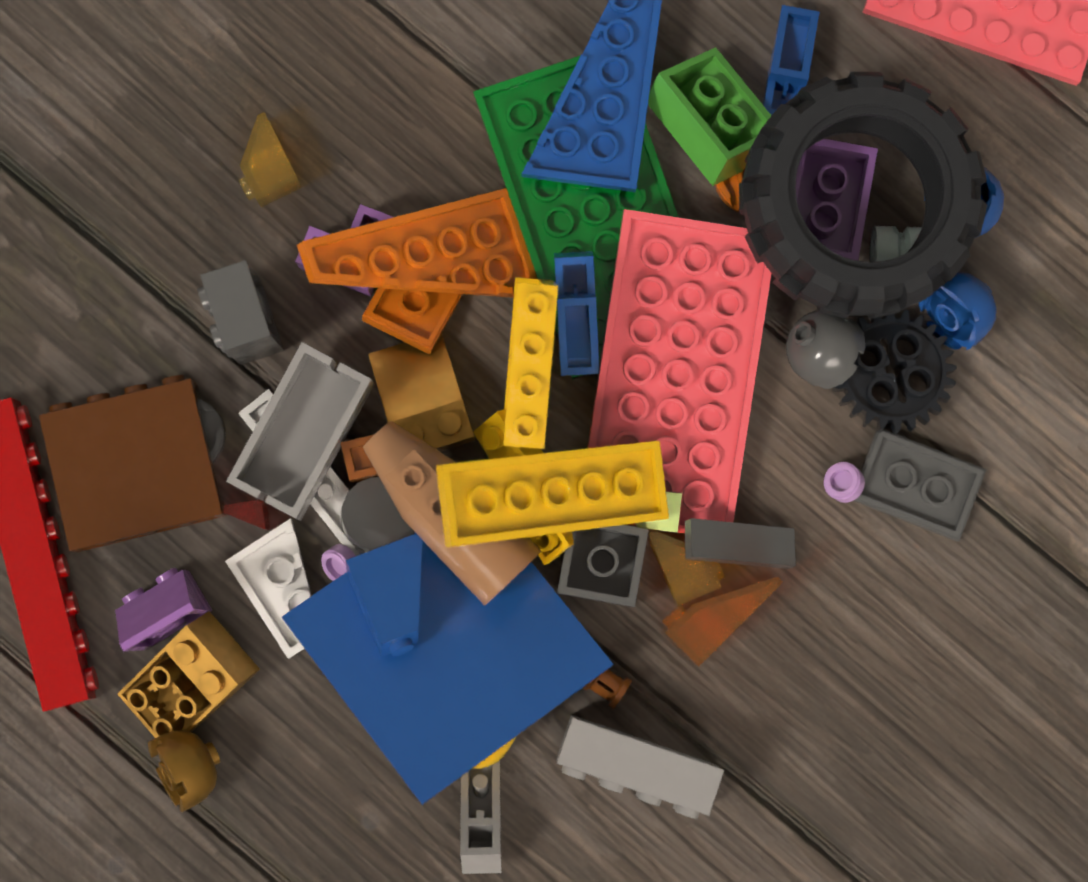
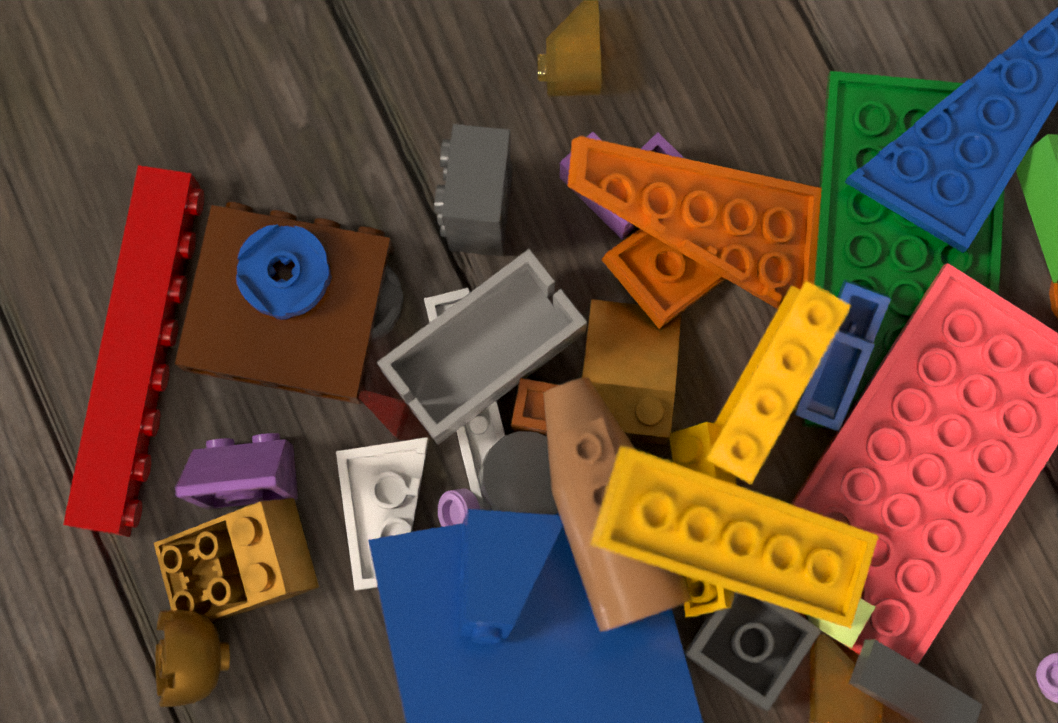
camera: 30 degrees right, 5 degrees down
(129, 463) = (256, 269): none -> blue plate

